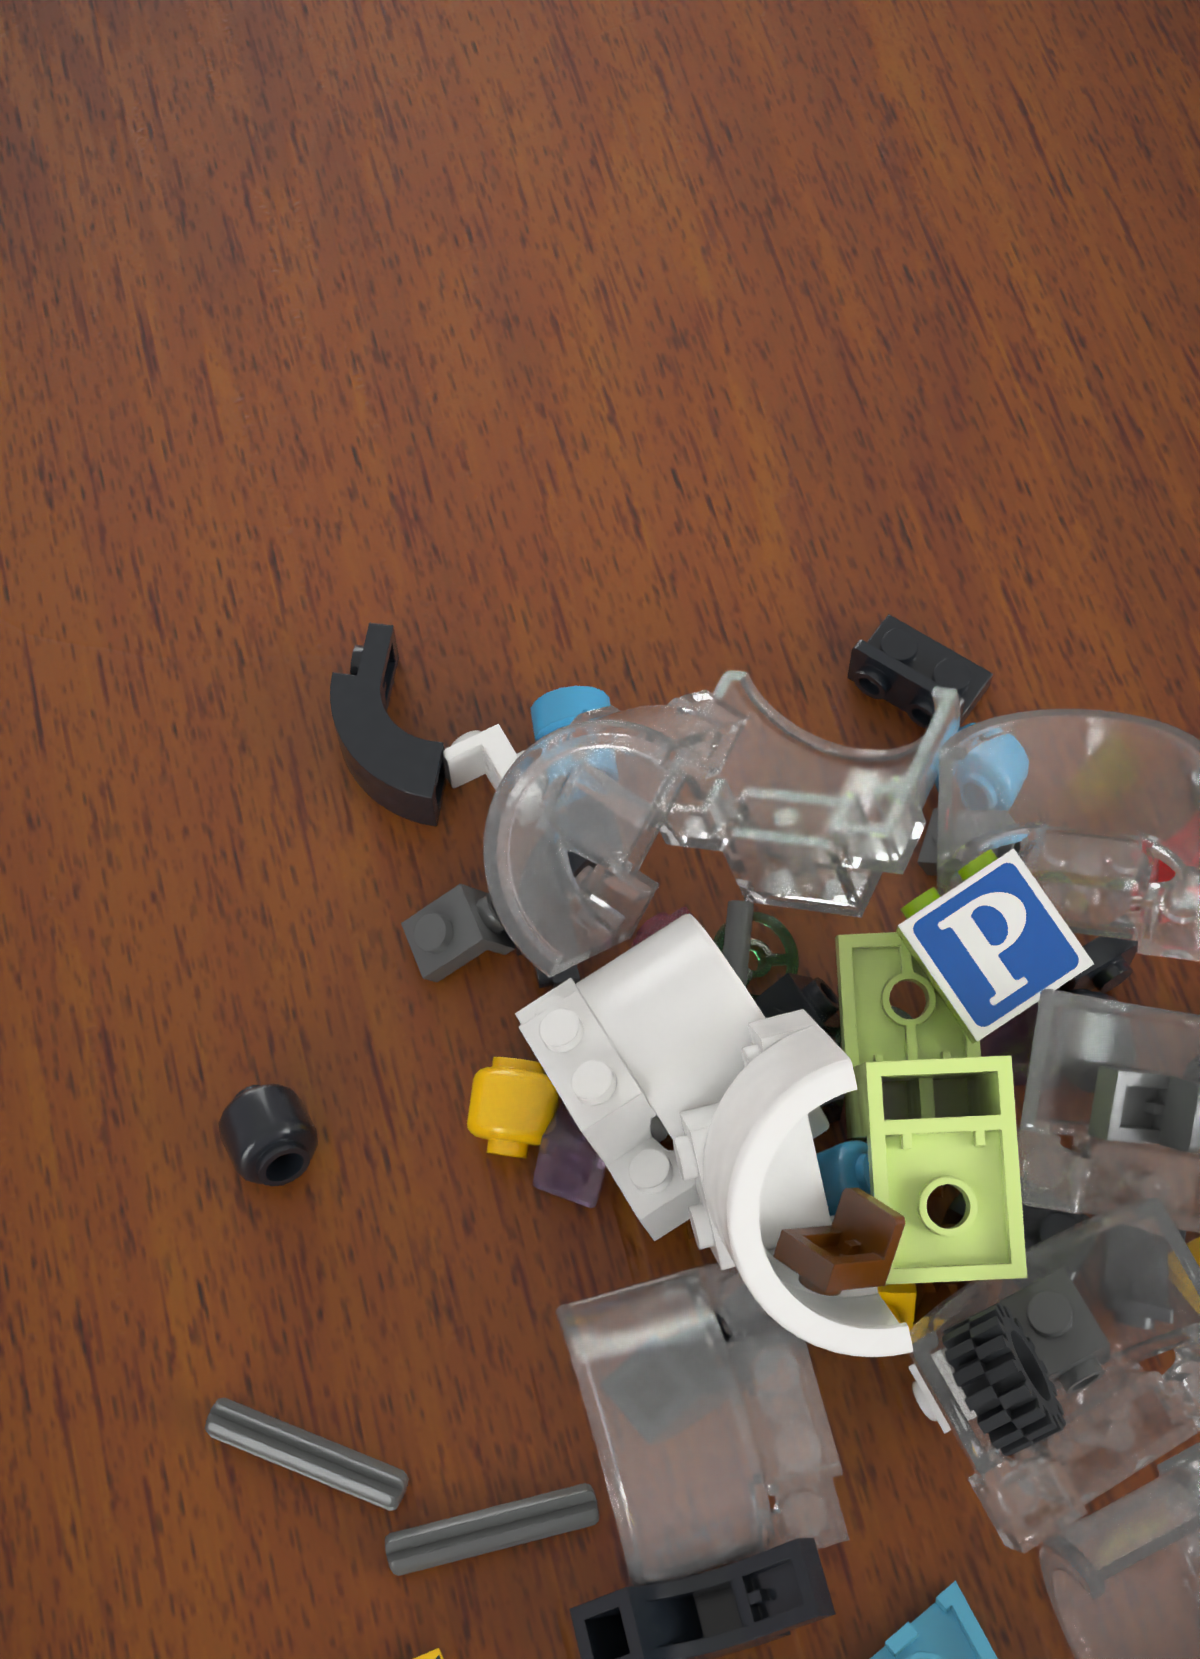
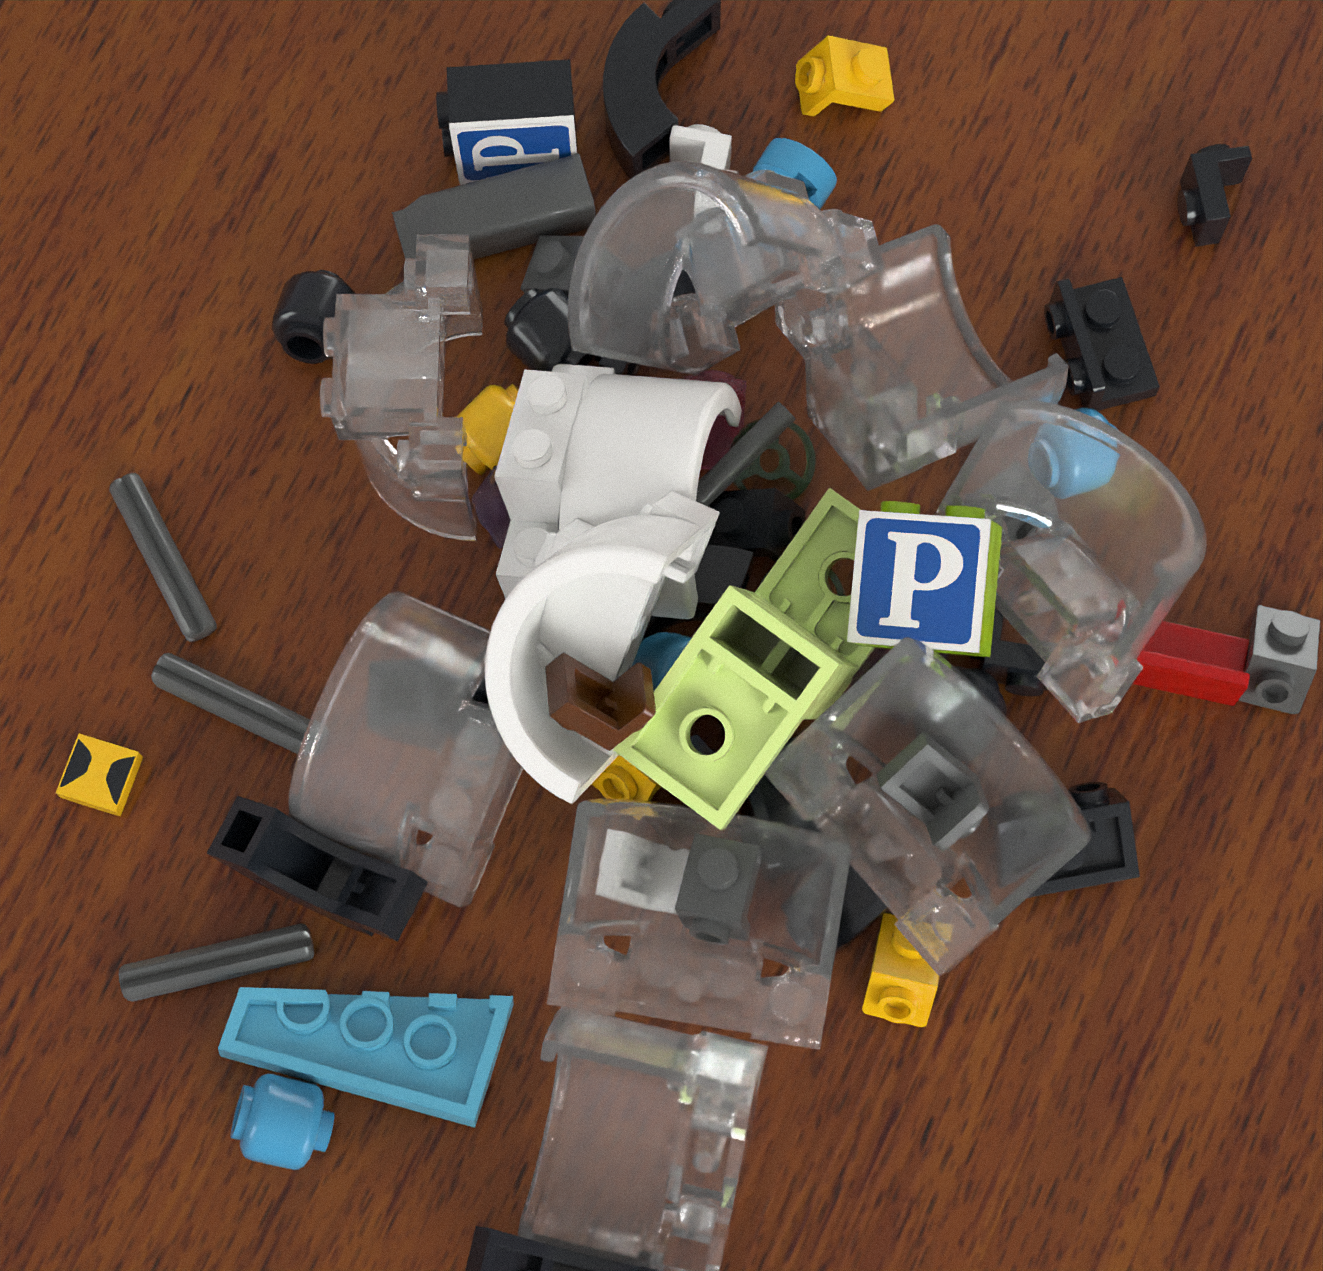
camera: 40 degrees right, 10 degrees up
(306, 844) = (507, 116): none -> piece
(351, 931) = (504, 208): none -> dark grey piece
(420, 1123) = (392, 384): none -> clear piece
(485, 992) = (540, 331): none -> black head
(534, 619) = (844, 74): none -> yellow bracket
(893, 509) = (1202, 197): none -> black bracket
(1003, 1379) = (632, 879): black tyre -> none

